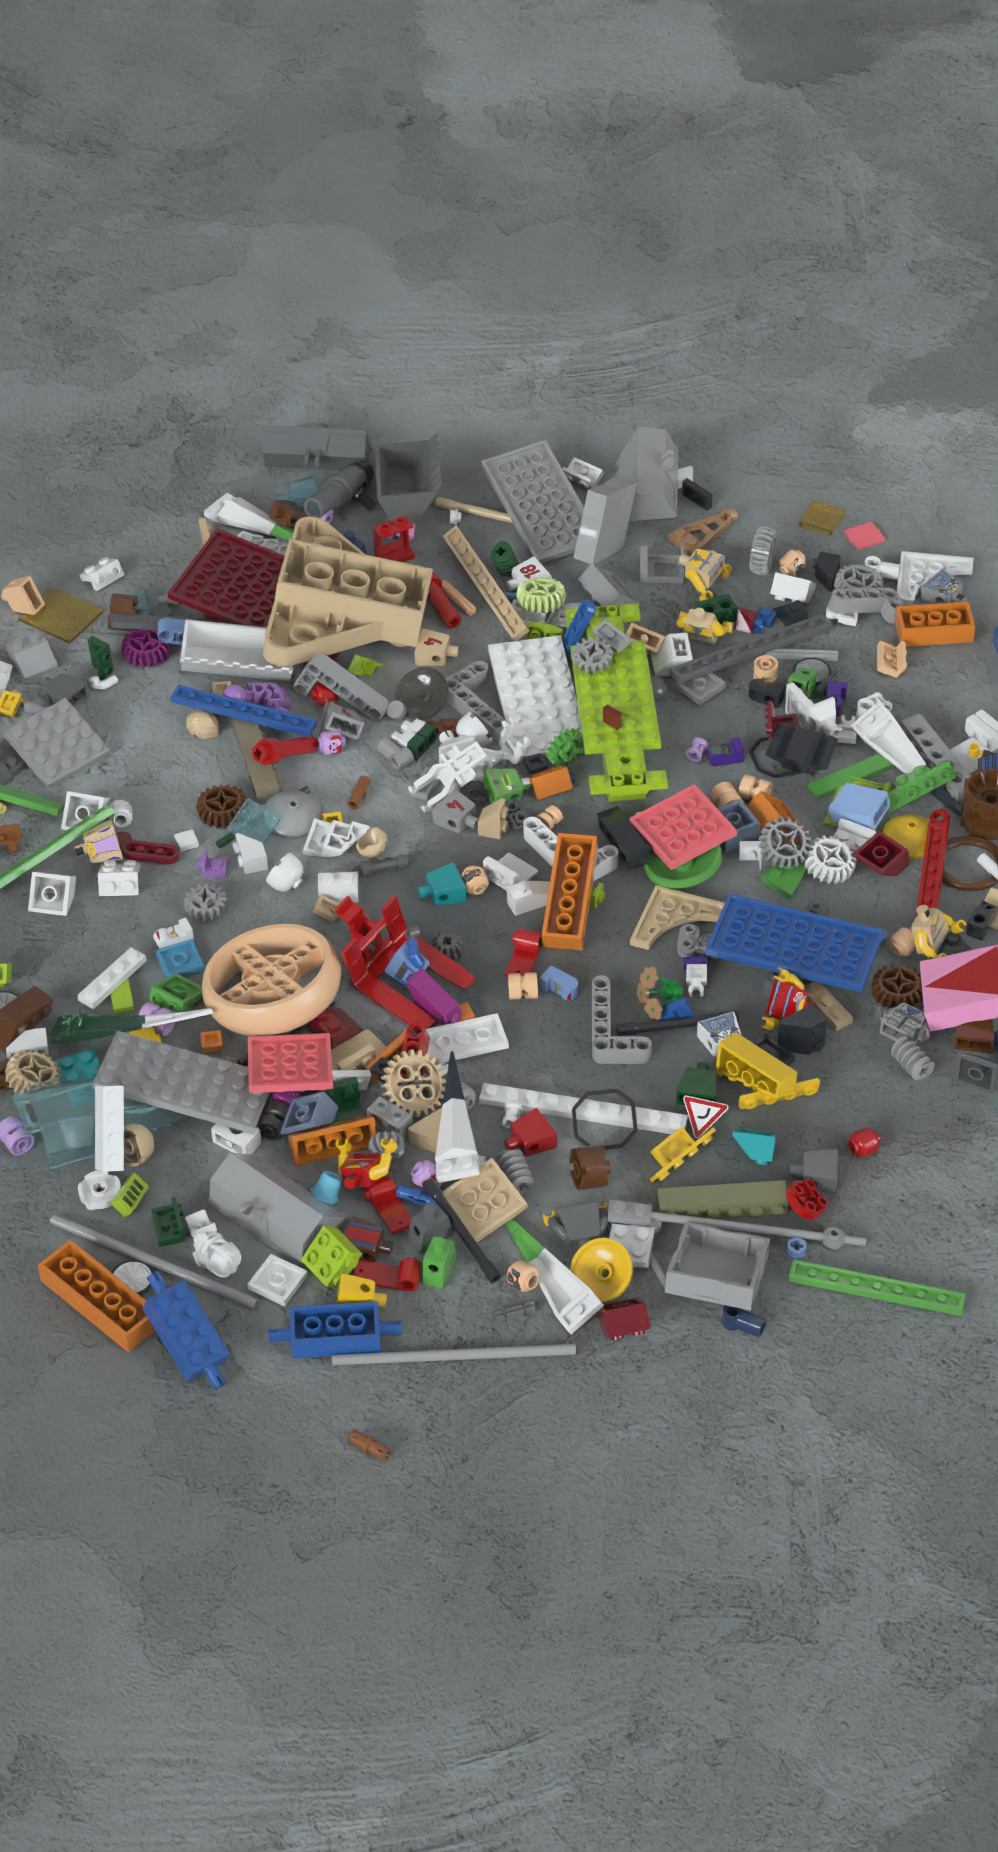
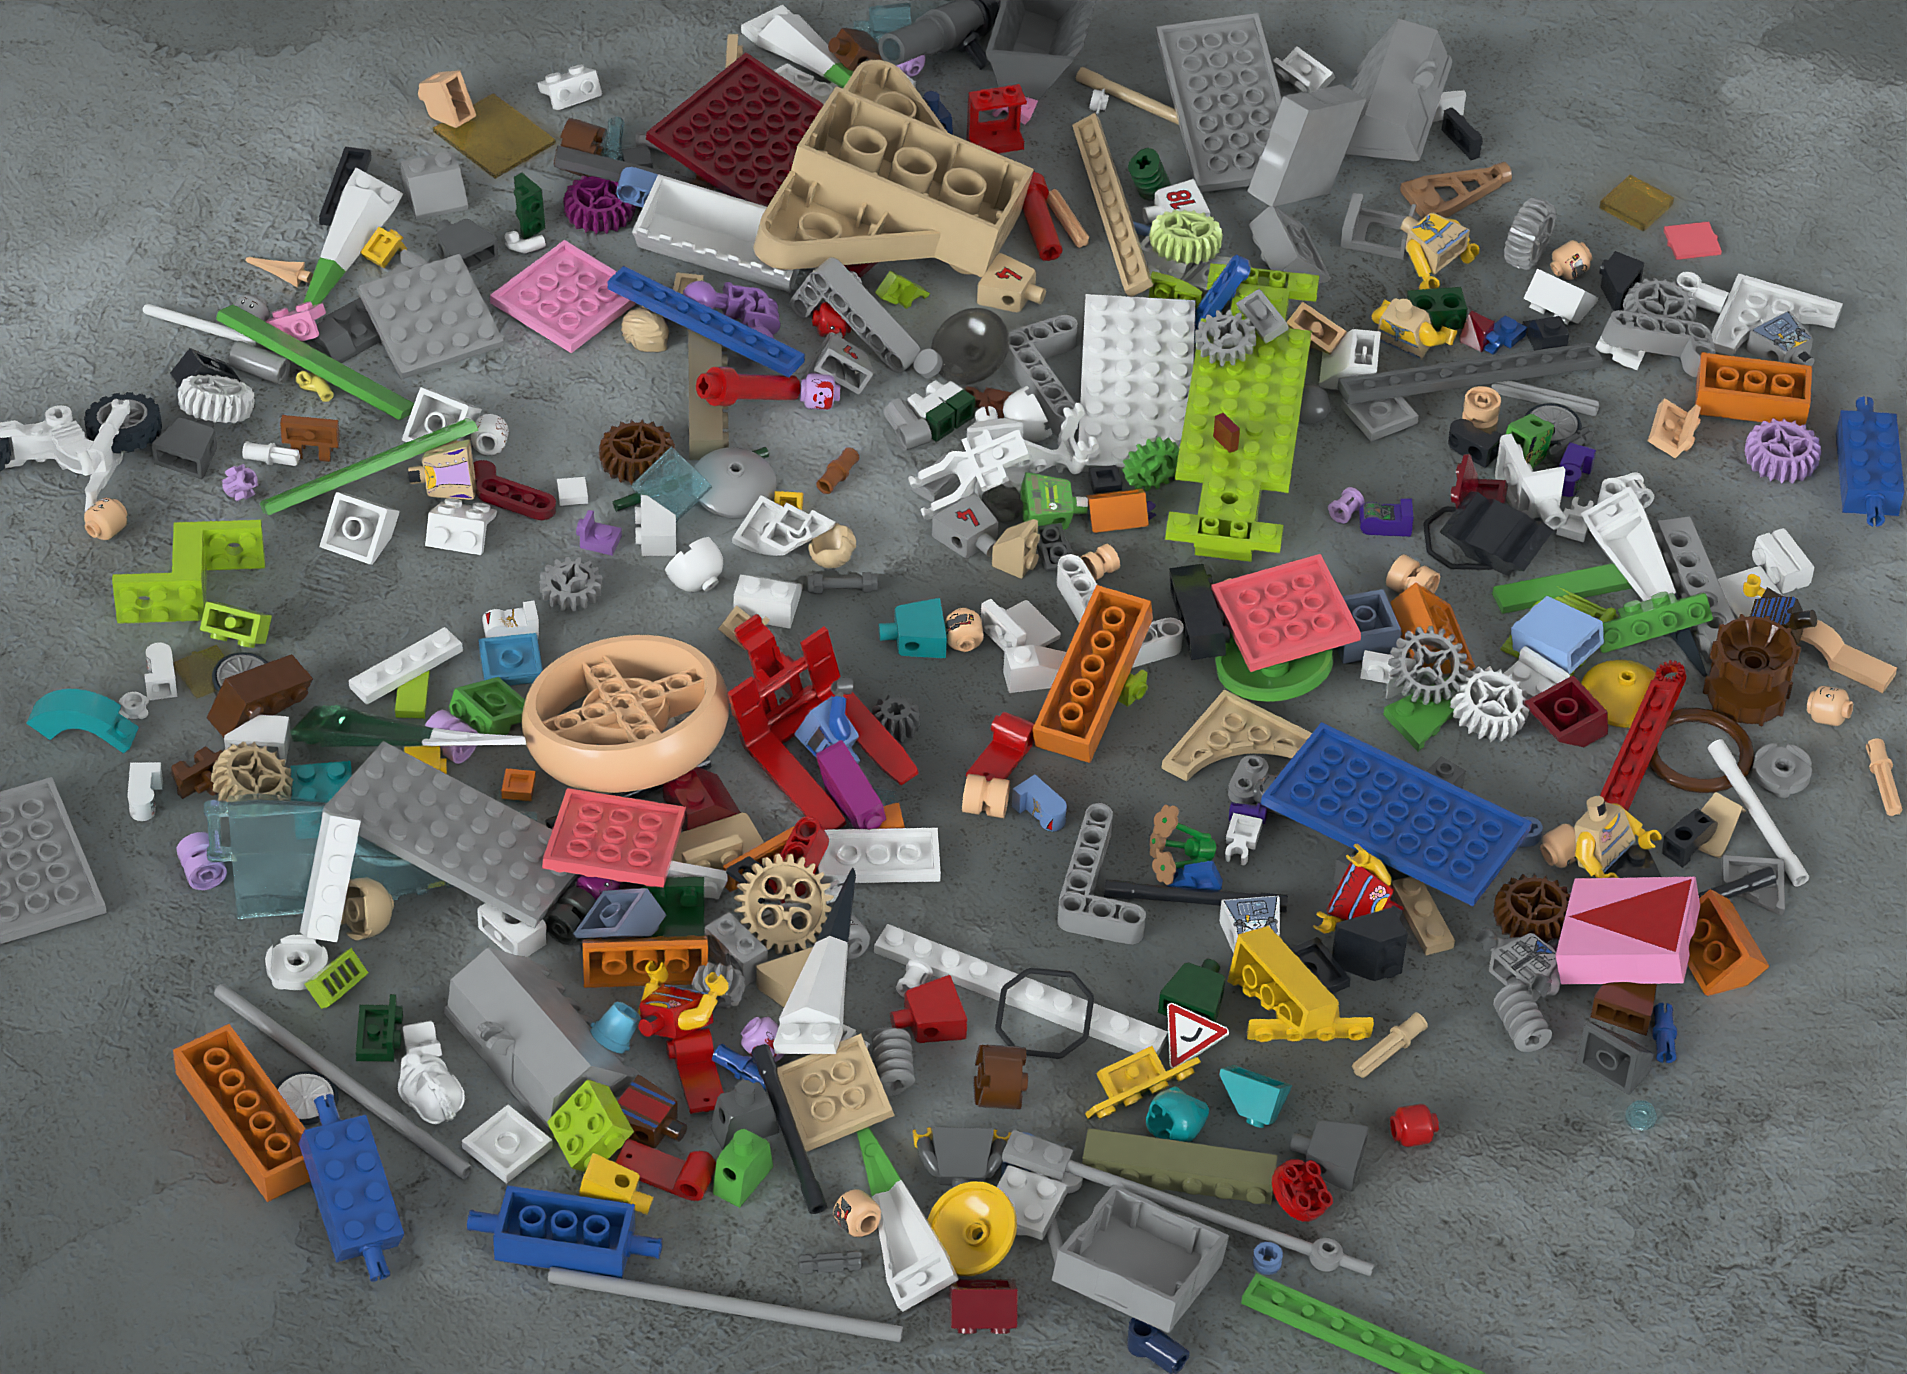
camera: 10 degrees right, 0 degrees up
(141, 713) = (563, 297): none -> bright pink plate
(710, 1168) = (1176, 1115): none -> teal piece
(724, 794) = (1365, 577): light nougat wheel -> none
(836, 1088) = (1398, 1038): none -> tan axle
(964, 660) = (1782, 450): none -> lavender gear

